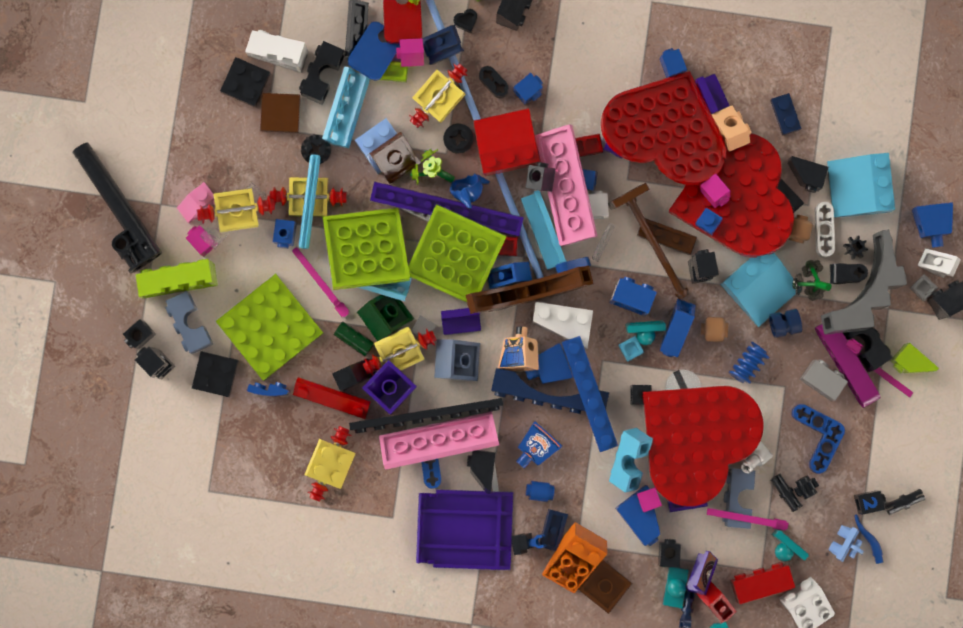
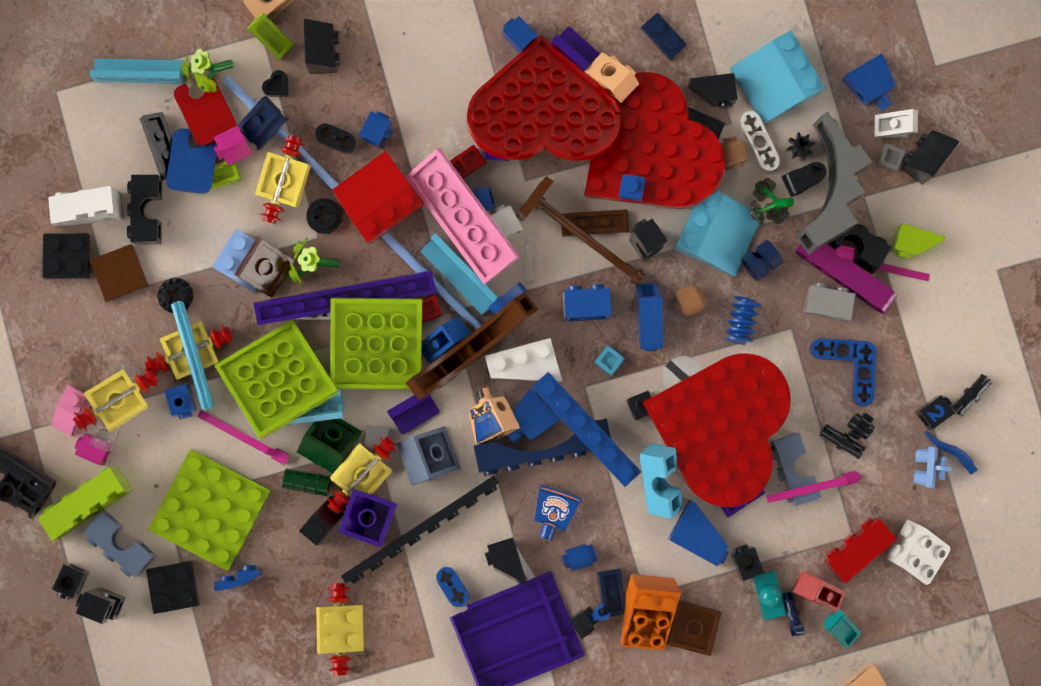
camera: 25 degrees left, 0 degrees up
(331, 398) = (310, 557): red plate -> none
(348, 109) = (191, 236): medium azure fence -> none
(438, 440) = (445, 551): bright pink plate -> none
(468, 189) = (358, 266): blue piece -> none
(540, 177) = (433, 226): black brick -> none
(645, 330) = (616, 334): teal tile -> none
(649, 499) = (699, 514): dark pink tile -> none
(702, 573) = (791, 568): panel -> none
(715, 191) = (625, 152): dark pink brick -> none
(757, 458) = (797, 417): white pin -> none
(787, 548) = (869, 502): teal tile -> none

